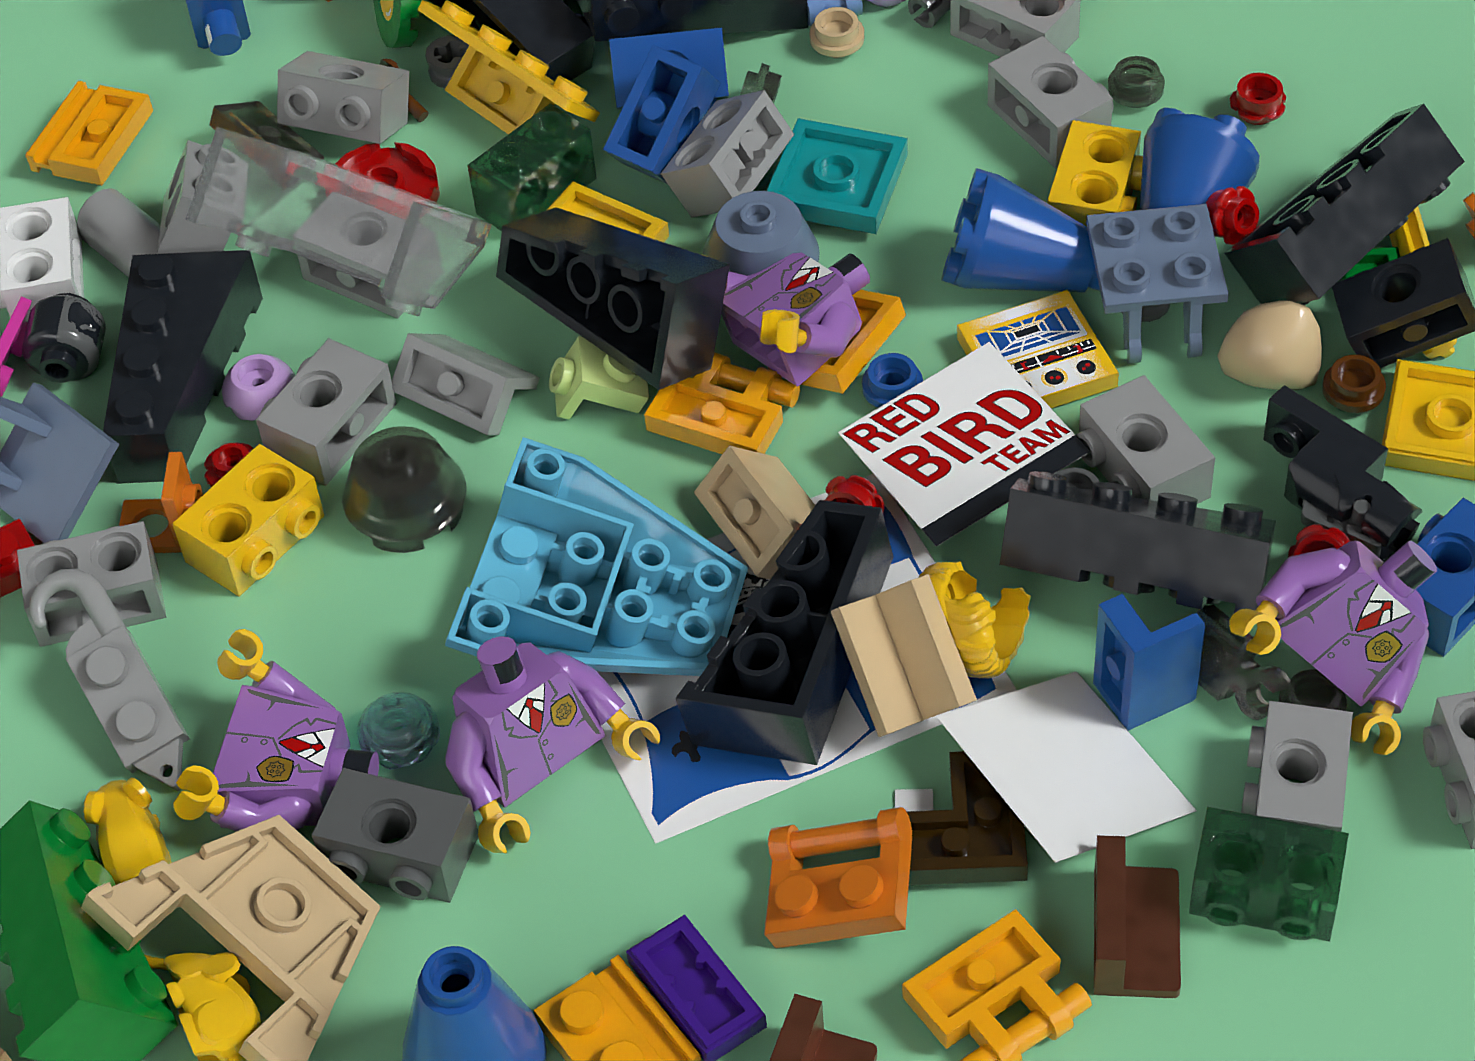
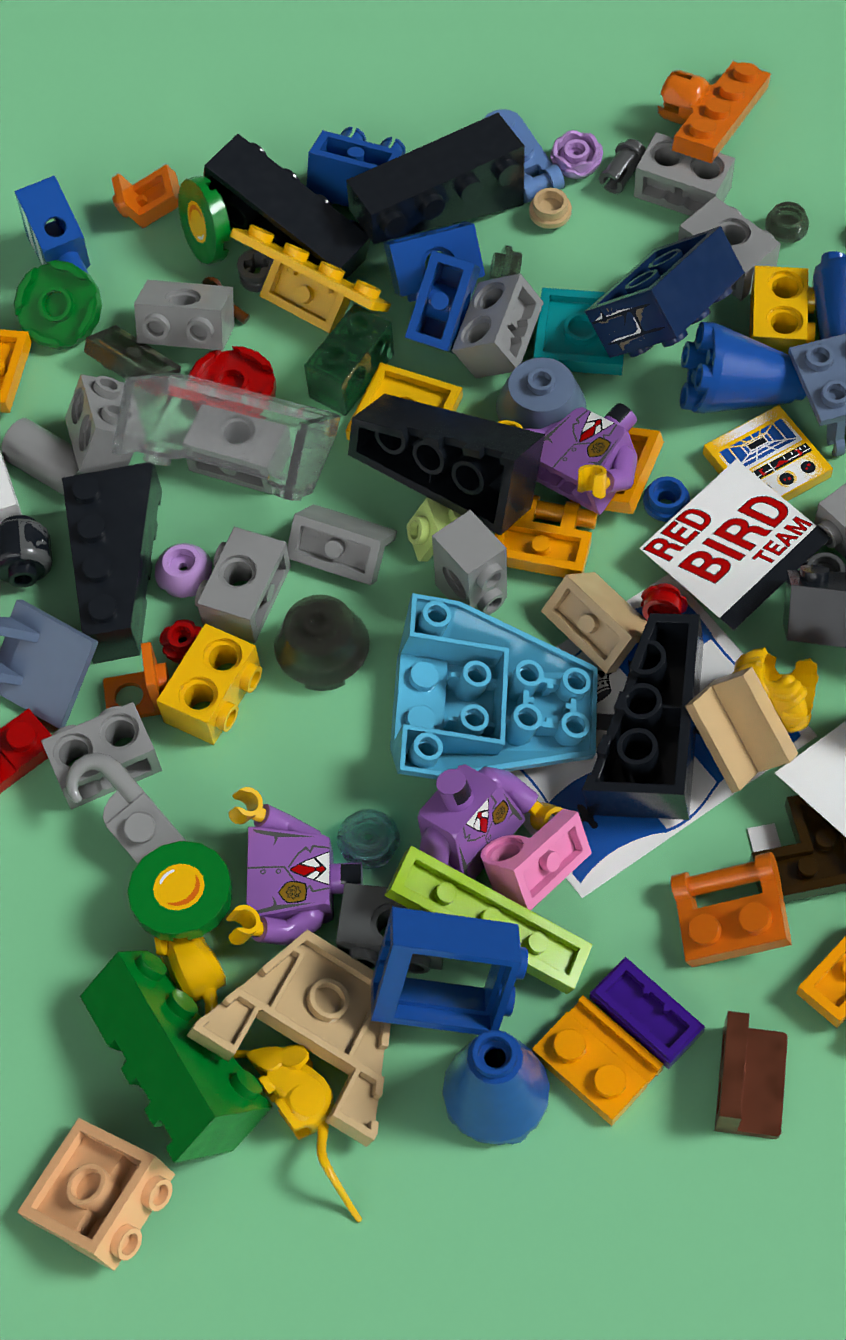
camera: 10 degrees left, 10 degrees up
(131, 744) = (180, 891): none -> green tile
(193, 68) = (58, 304): none -> green tile
(416, 931) = (443, 1004): none -> blue window
(514, 838) = (435, 887): none -> lime plate
(590, 785) = (533, 866): none -> bright pink plate
(610, 416) = (470, 564): none -> light grey brick
(942, 134) = (665, 294): none -> dark blue brick

